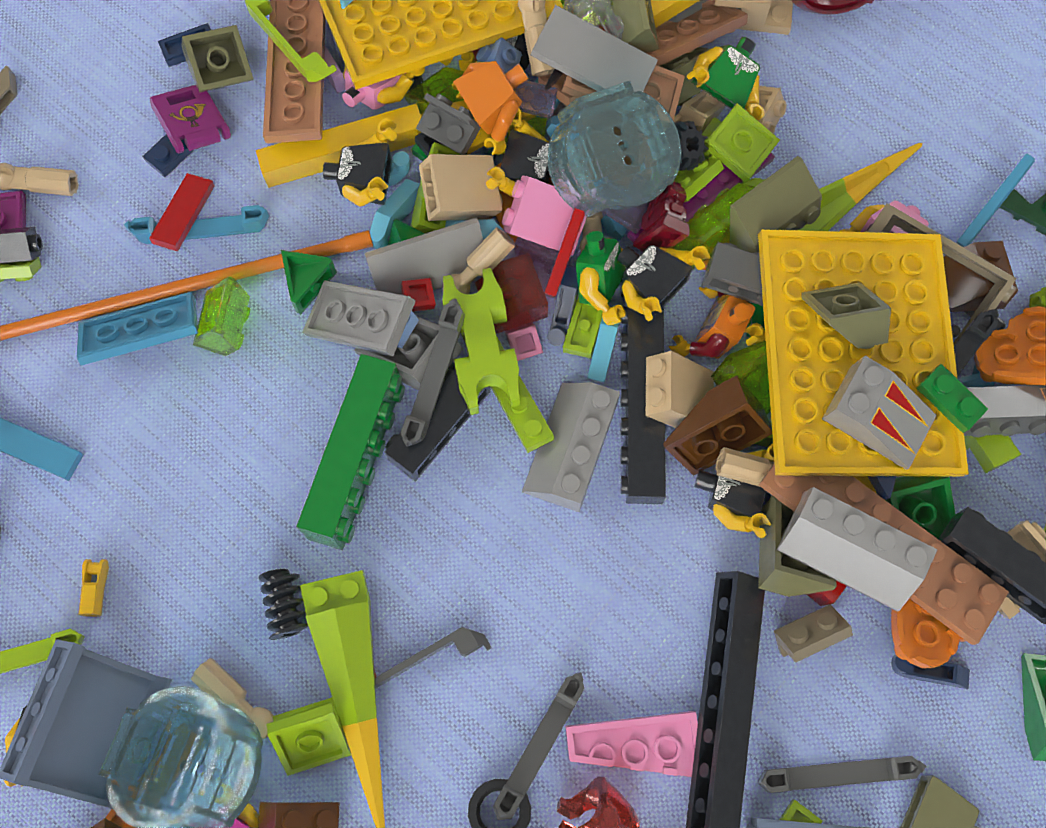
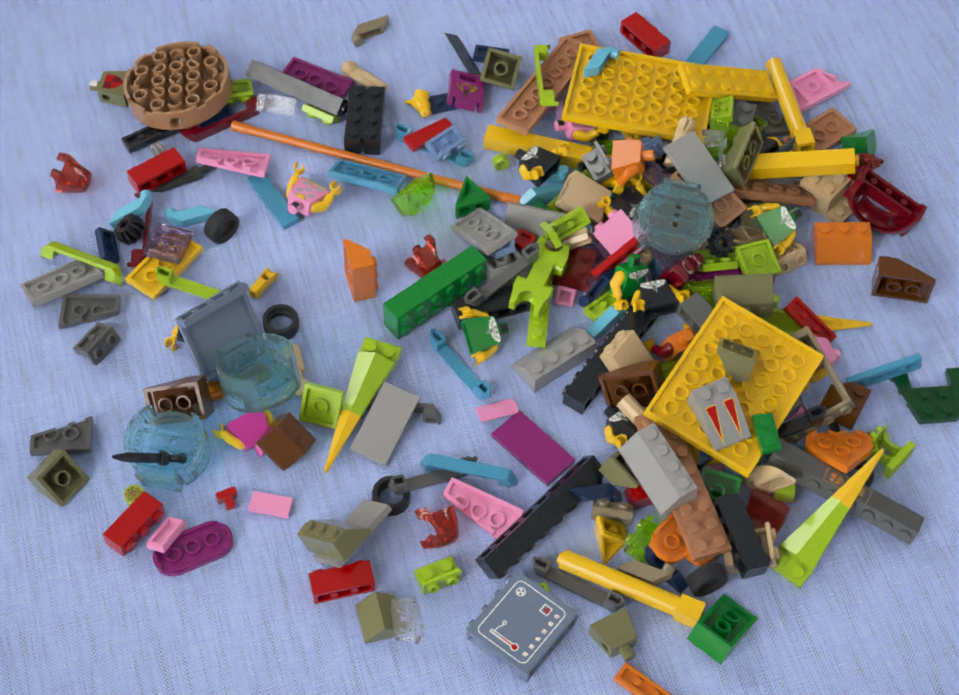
camera: 30 degrees right, 15 degrees down
(70, 412) = (308, 196): none -> torso
(76, 242) = (364, 119): none -> black piece
(139, 171) = (420, 102): none -> yellow animal
(141, 622) = (281, 310): none -> black tyre
(150, 65) = (463, 54): none -> black sticker
(214, 212) = (445, 143): none -> medium blue bracket
(227, 489) = (360, 270): none -> orange slope
(282, 603) = (350, 341): black piece -> none
(306, 195) = (501, 161): none -> lime bush
(306, 412) = (424, 259): none -> clear red piece
(409, 524) = (439, 344): none -> dark azure piece
(417, 705) = (385, 424): none -> light grey tile
(459, 477) = (481, 333): none -> torso
(467, 246) = (565, 226): none -> lime bracket
(552, 576) = (496, 410): none -> bright pink tile
(580, 700) = (504, 476): none -> dark azure piece
(637, 600) = (533, 448): none -> magenta tile
(774, 619) = (598, 491): none -> dark blue piece
(812, 54) = (842, 243): none -> orange slope
(829, 674) = (609, 537): none -> yellow slope
(852, 187) = (803, 317): none -> red tile
(873, 644) = (640, 539): none -> clear neon green bracket
(910, 730) = (682, 608): none -> yellow brick
(917, 696) = (646, 572): none -> dark tan piece
(922, 64) = (901, 281): none -> reddish brown slope
(989, 452) = (767, 479): none -> tan slope
(996, 499) = (764, 509): none -> clear red bracket
(1002, 655) = (707, 579): none -> black tyre

